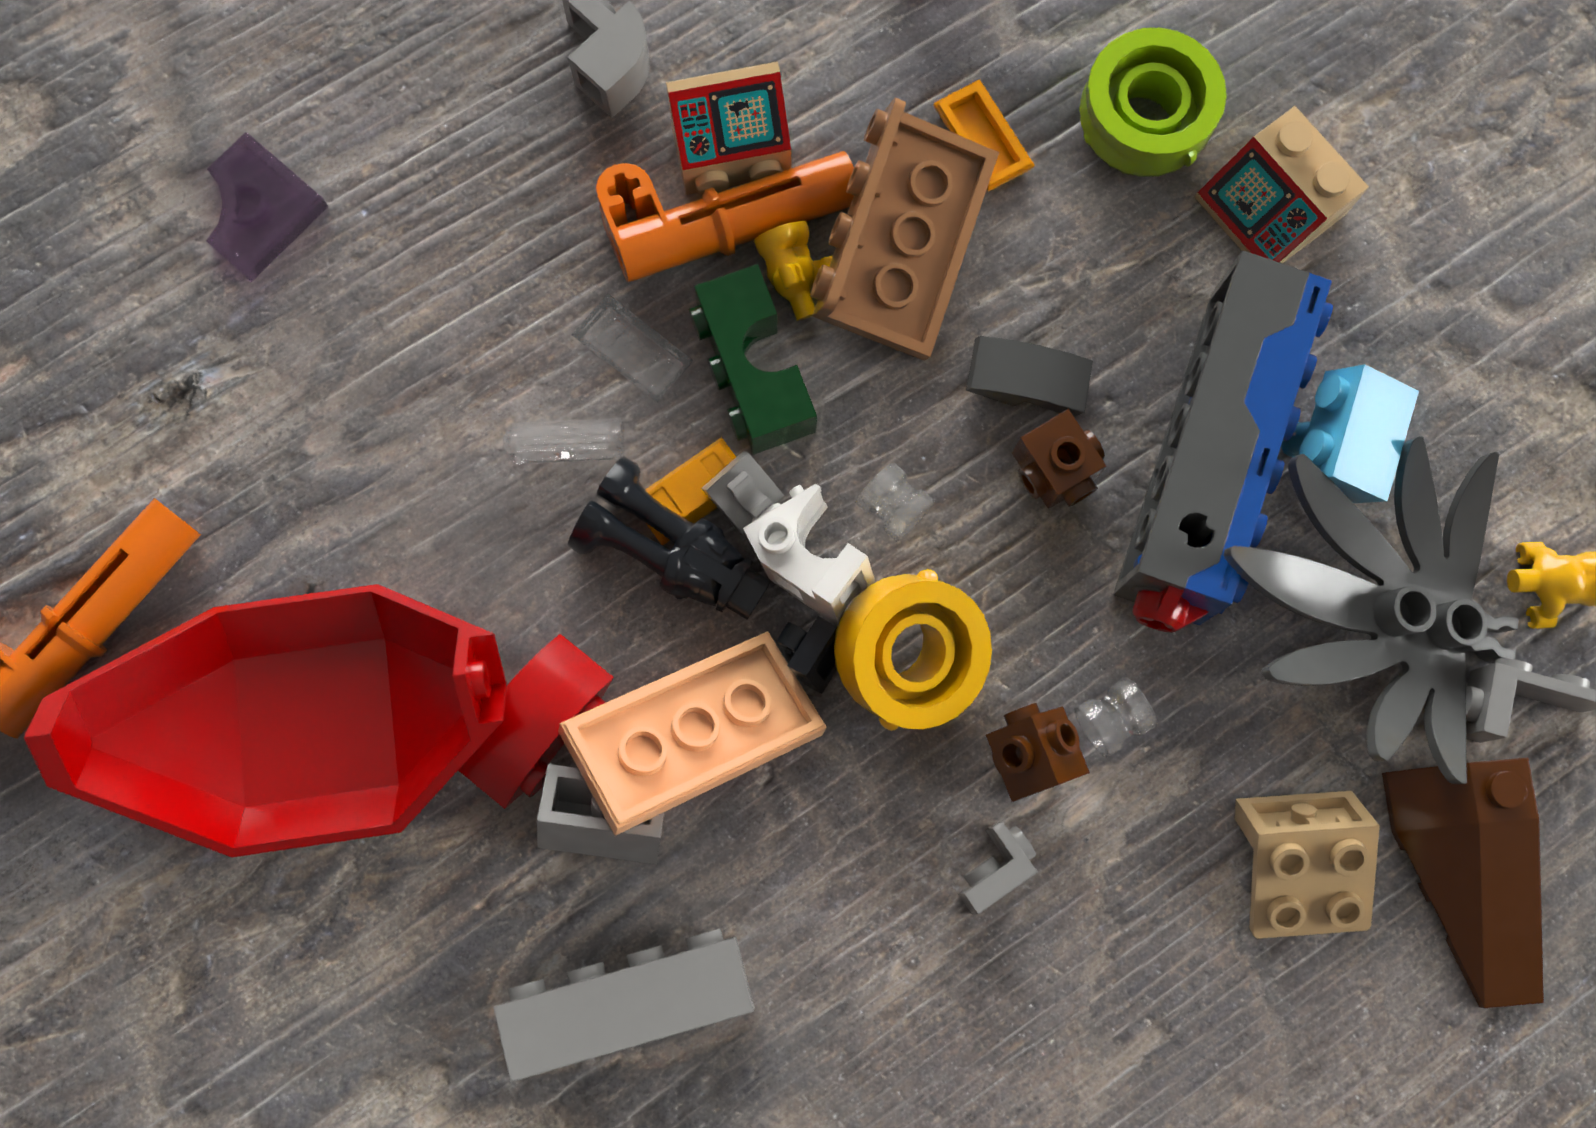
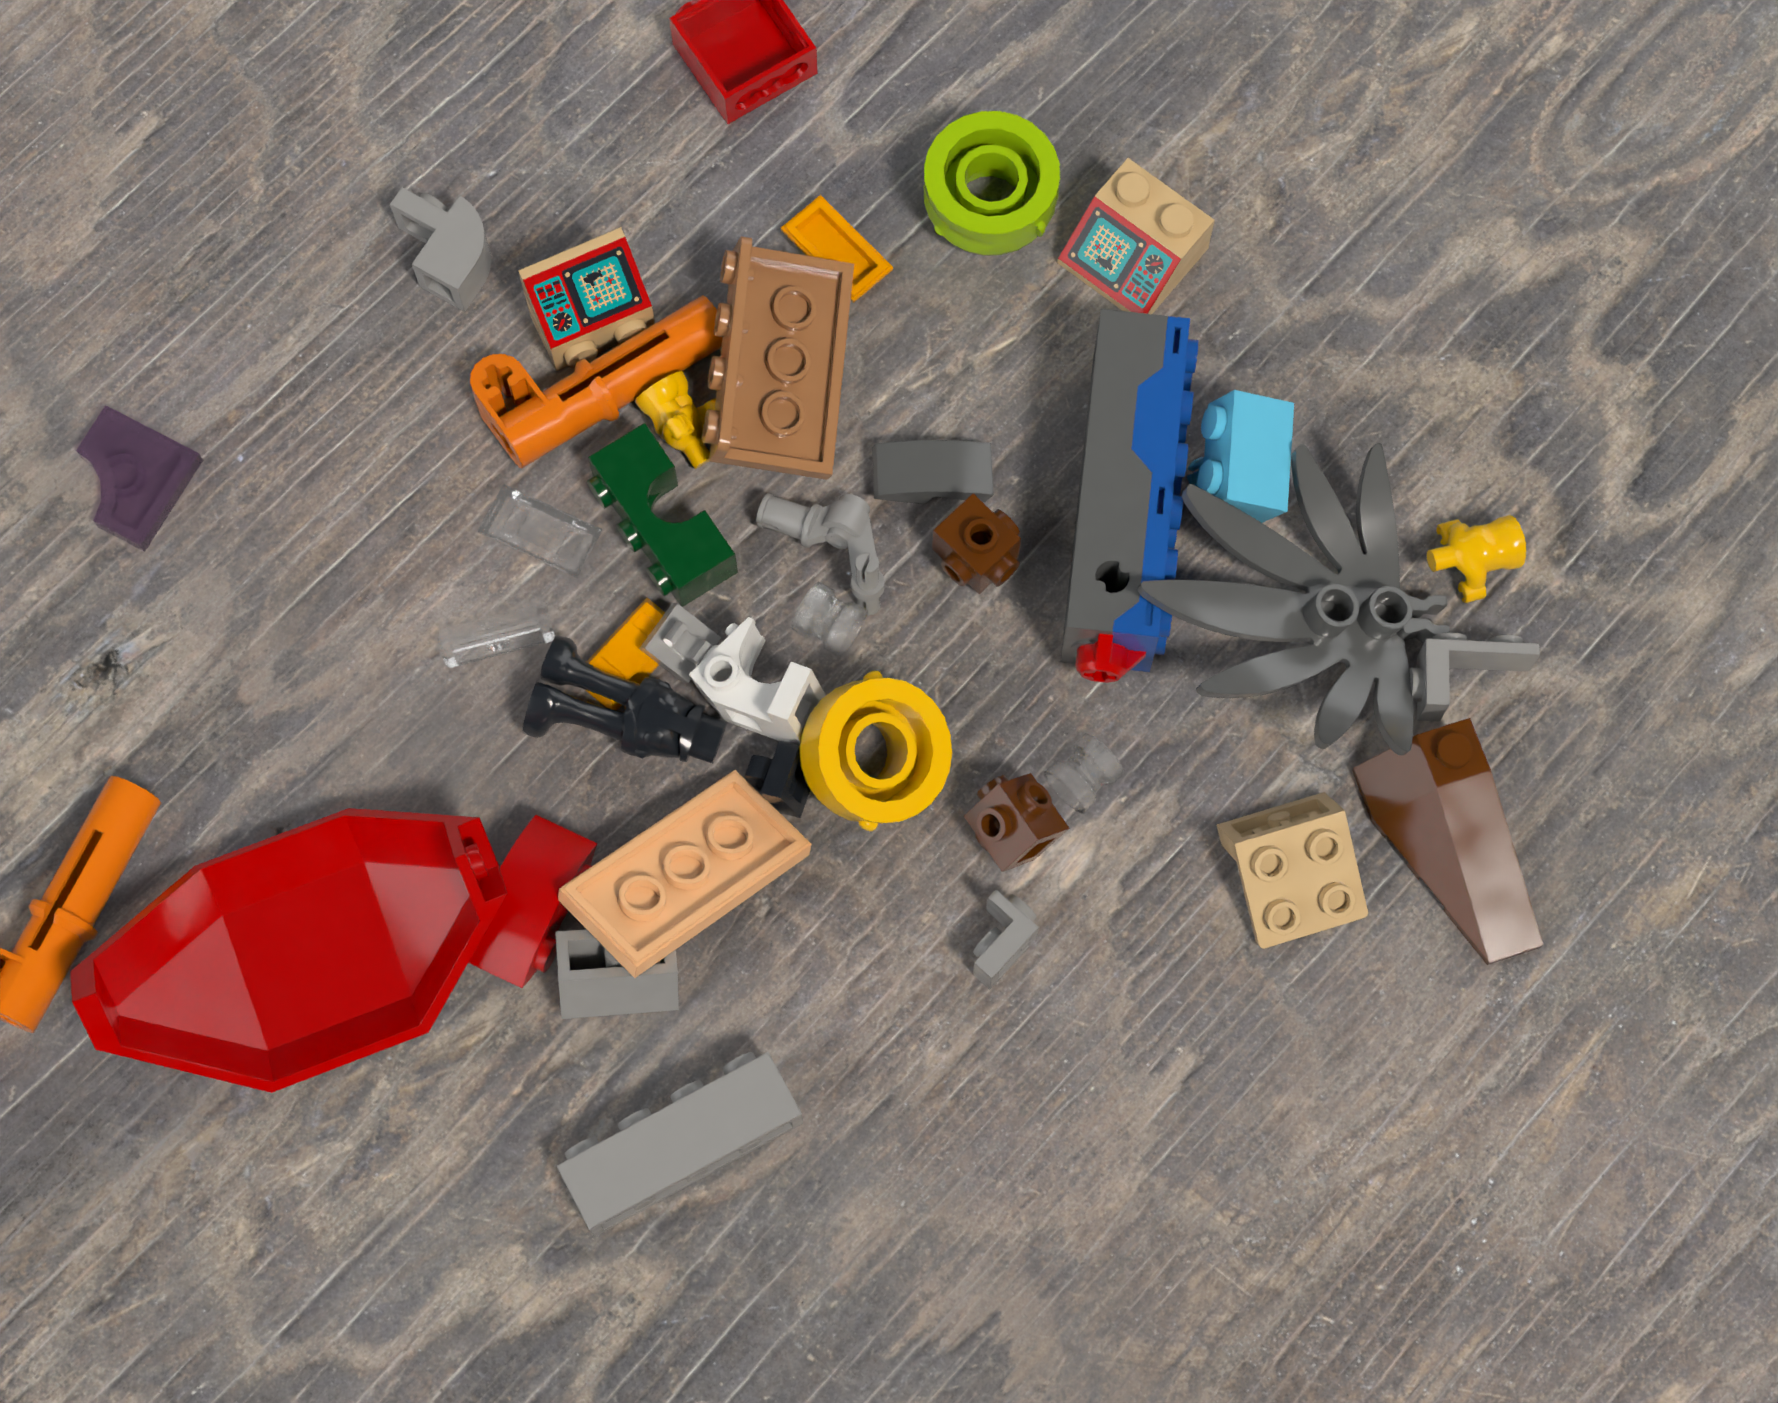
camera: 10 degrees left, 5 degrees down
(930, 411) = (840, 524): none -> light grey pin

